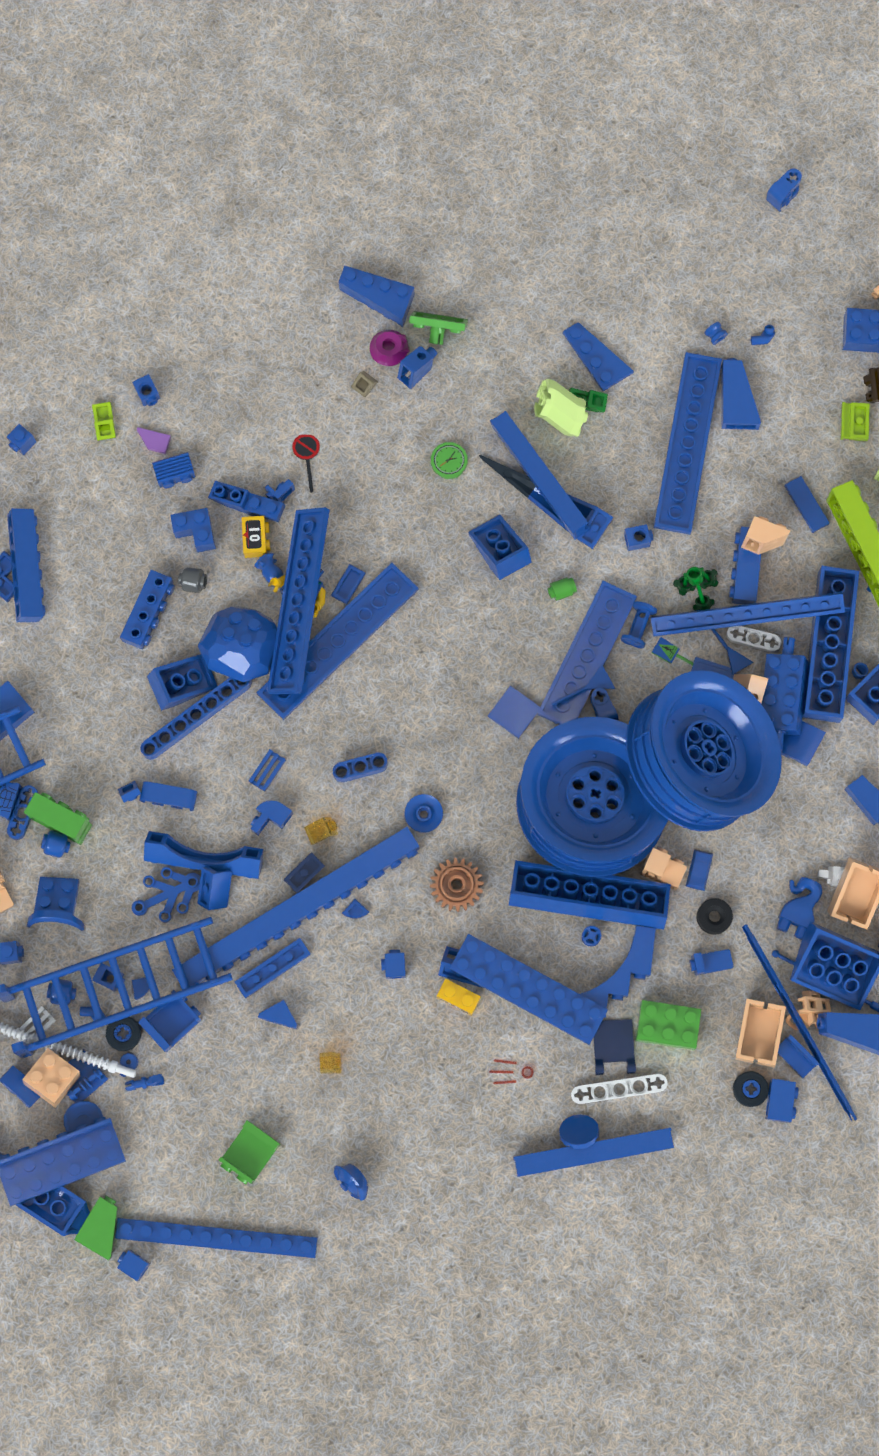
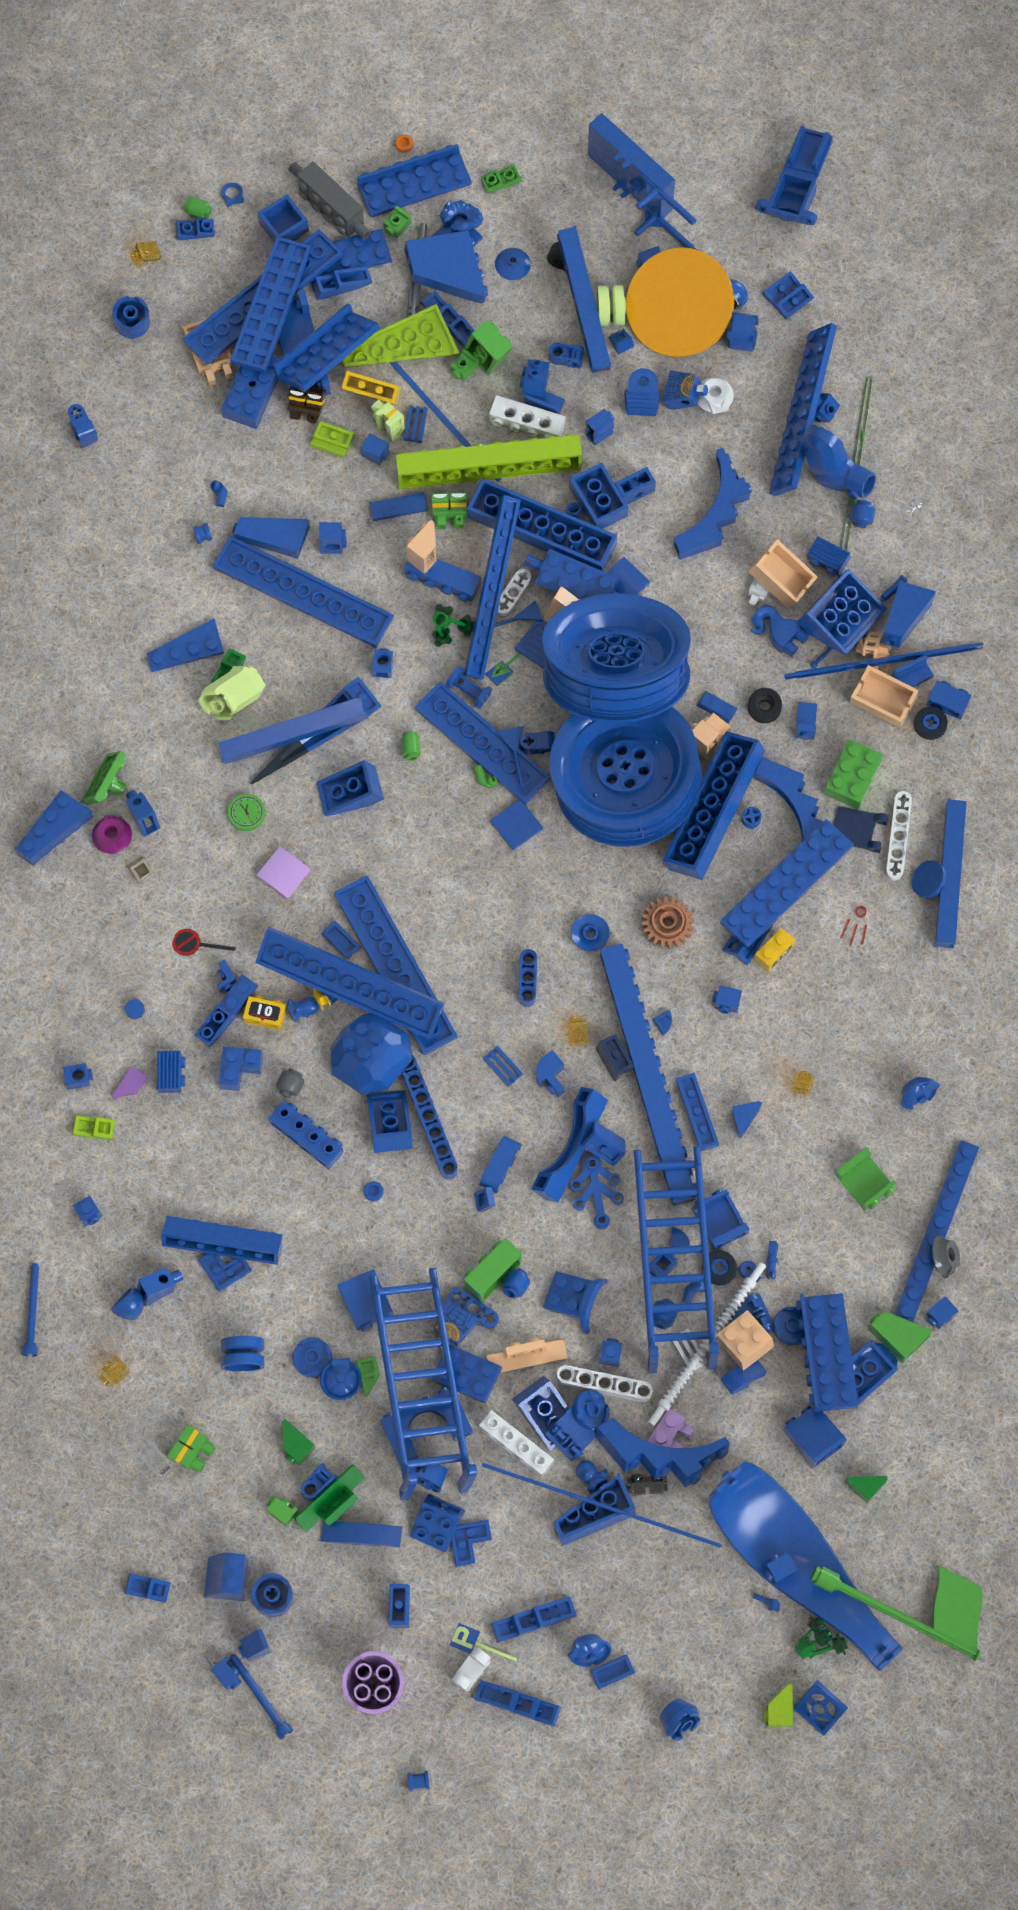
camera: 75 degrees left, 5 degrees down
(111, 688) = (373, 1191): none -> blue tile
(189, 1252) = (945, 1256): none -> dark grey piece
(227, 421) = (134, 1009): none -> blue tile
(398, 511) = (283, 872): none -> lavender slope
(551, 667) = (483, 779): none -> bright green arm
(748, 449) = (332, 538): none -> blue brick
(820, 550) = (441, 510): none -> bright green hips
(857, 463) = (375, 449): none -> blue brick

